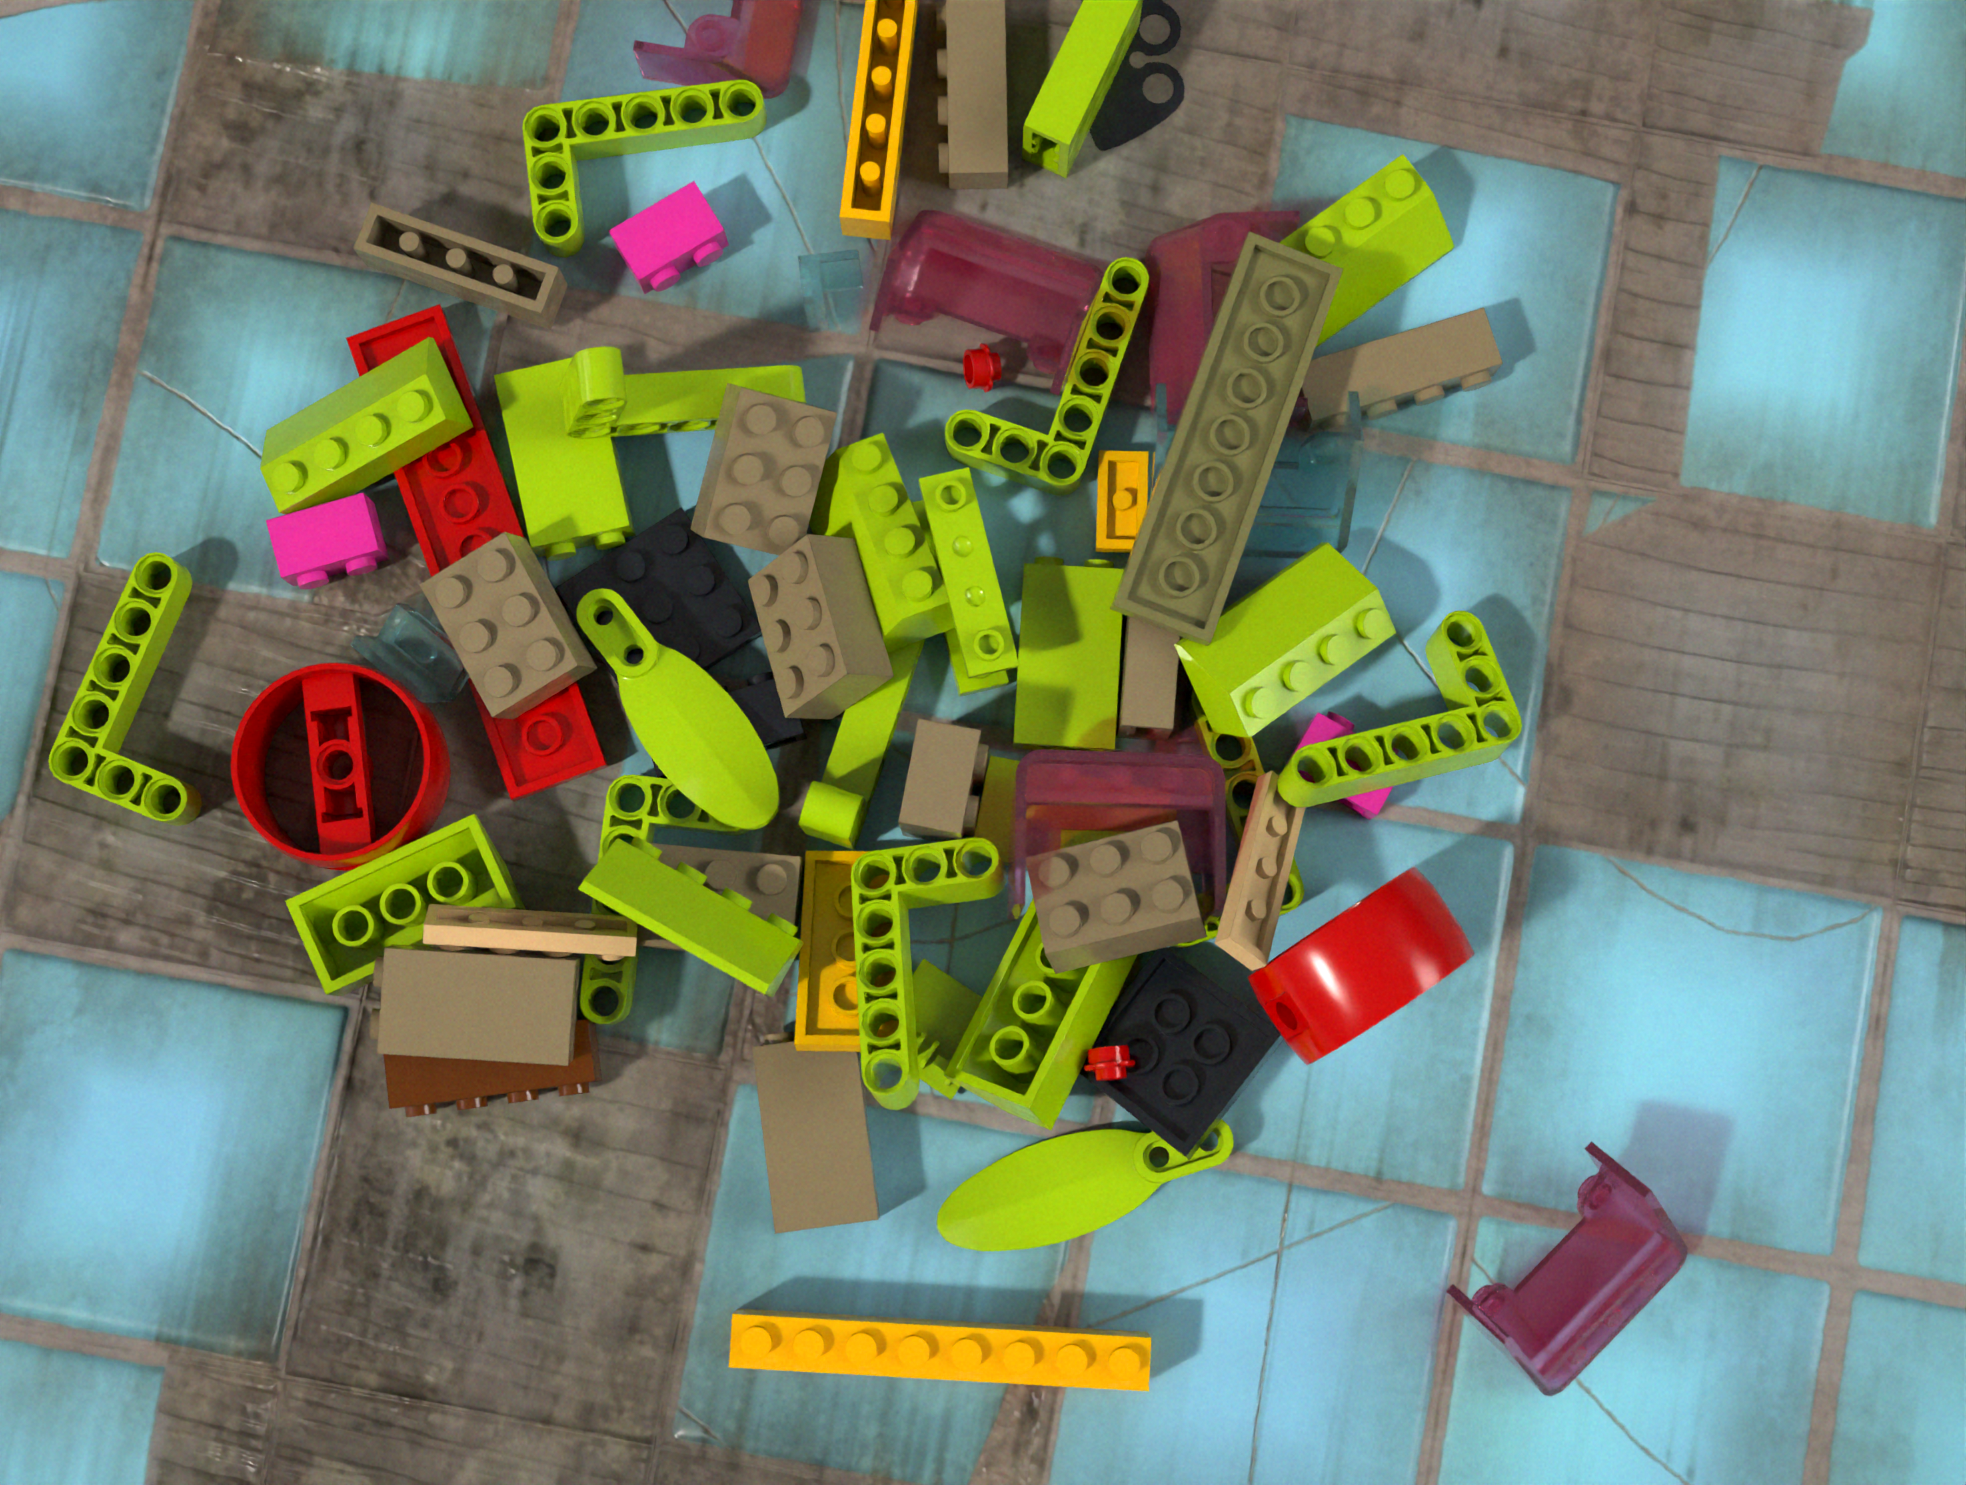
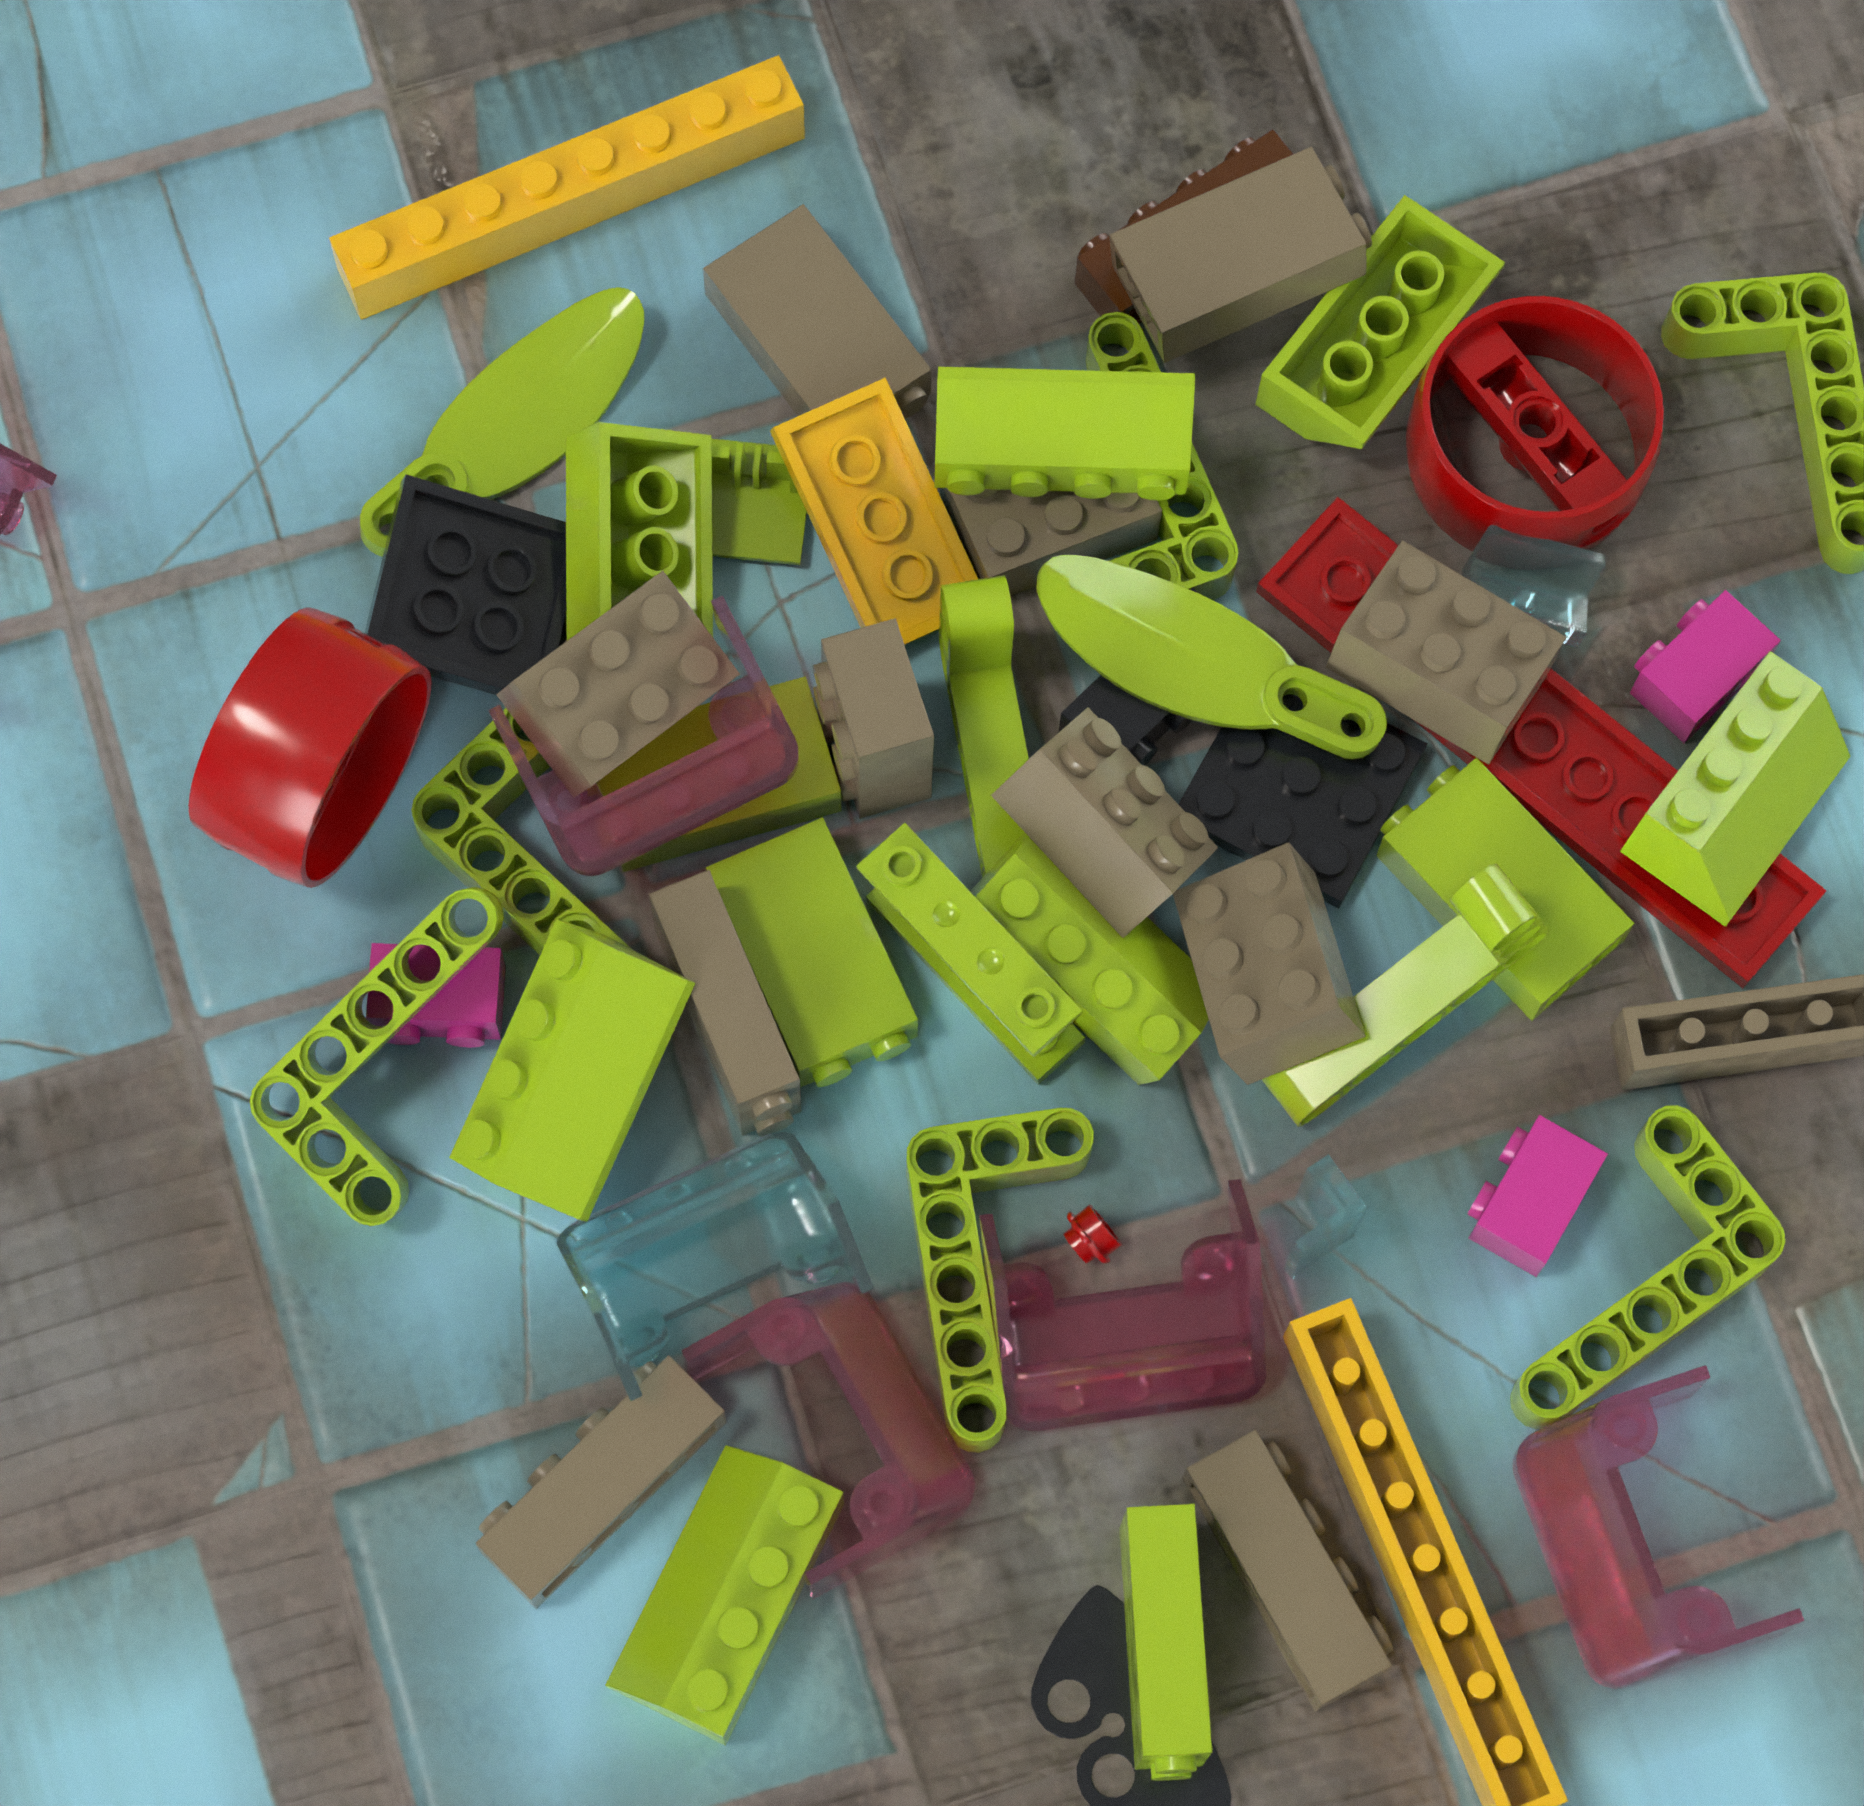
camera: 150 degrees right, 10 degrees down
(515, 930) = (1254, 335): tan plate -> none
(893, 950) = (823, 512): lime beam -> none
(1109, 1062) = (538, 536): red plate -> none
(1120, 498) = (847, 1160): yellow plate -> none
(1227, 439) = (755, 1249): olive plate -> none
(1260, 875) = (470, 782): tan plate -> none

